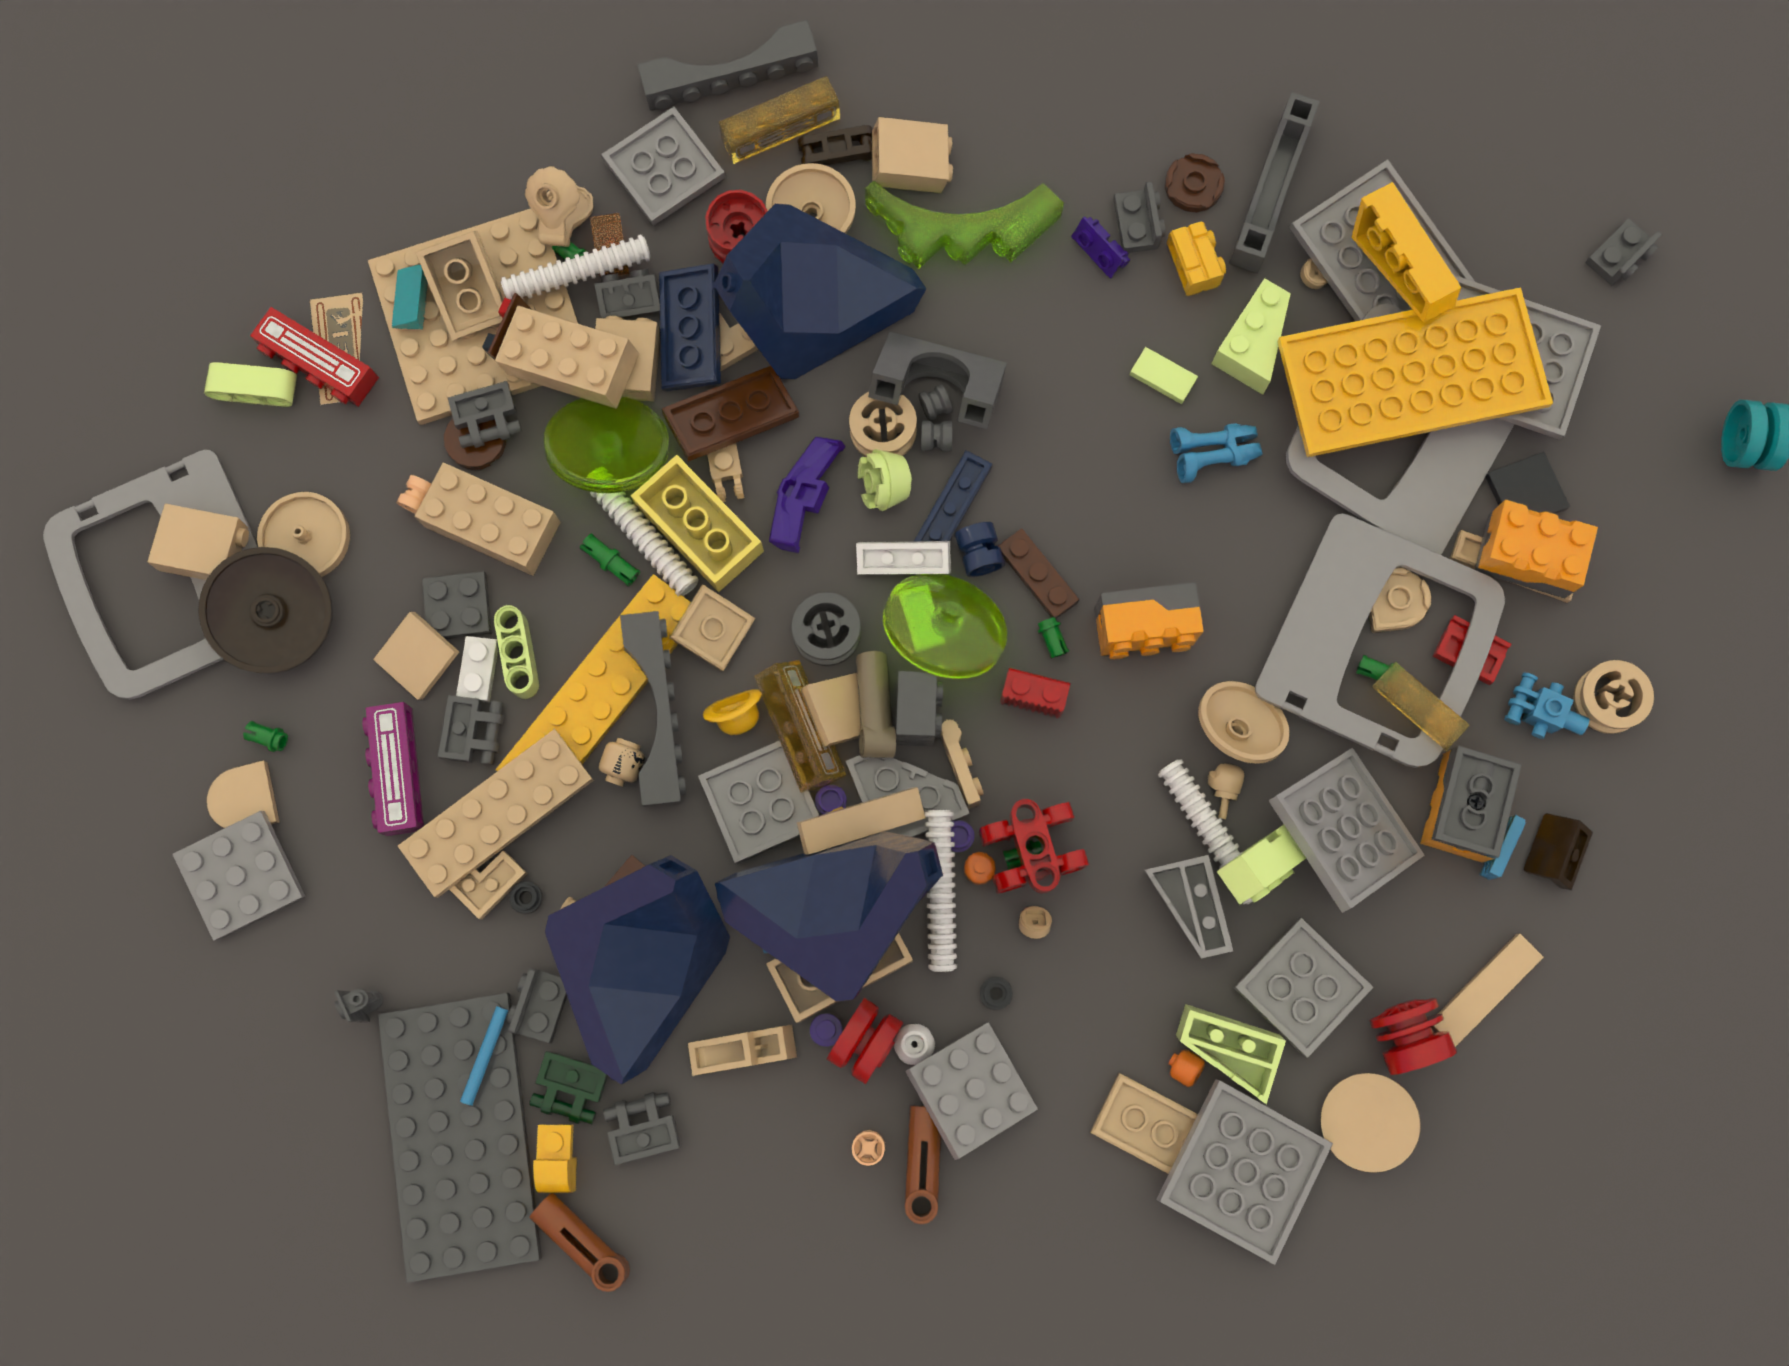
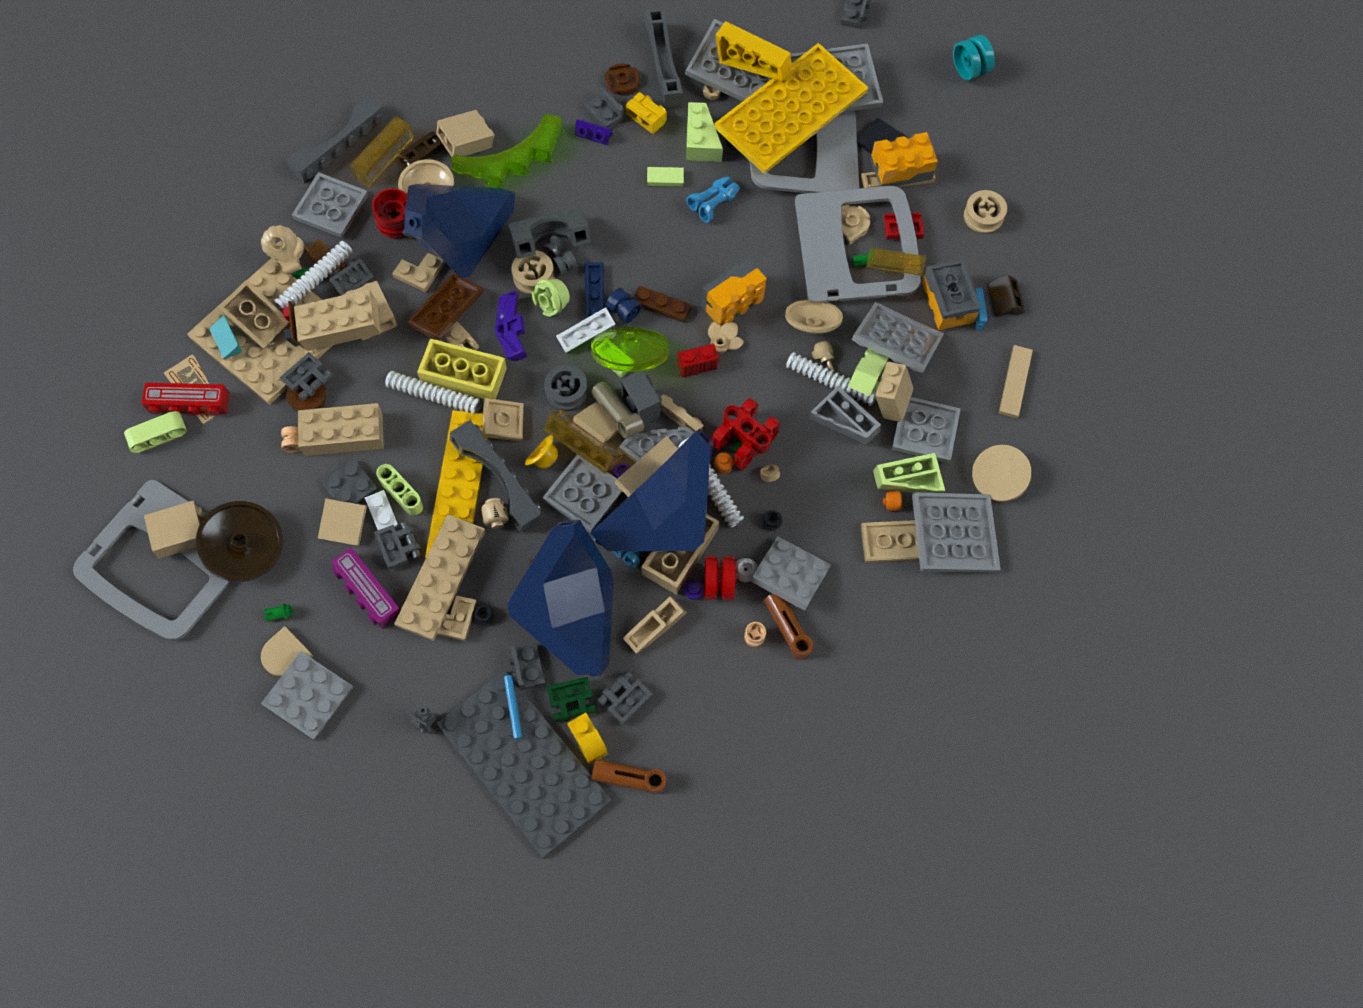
camera: 35 degrees left, 10 degrees down
(307, 527) = (235, 485): tan piece -> none
(606, 446) = (386, 355): clear neon green dish -> none
(609, 559) = (423, 415): green pin -> none
(689, 328) = (396, 276): dark blue tile -> none
(1053, 637) = (689, 329): green pin -> none
(1100, 674) = (724, 334): none -> tan plate
(1284, 913) = (894, 391): none -> tan brick
(1413, 1036) = (995, 418): red wheel -> none
(1546, 708) = (956, 234): dark azure piece -> none

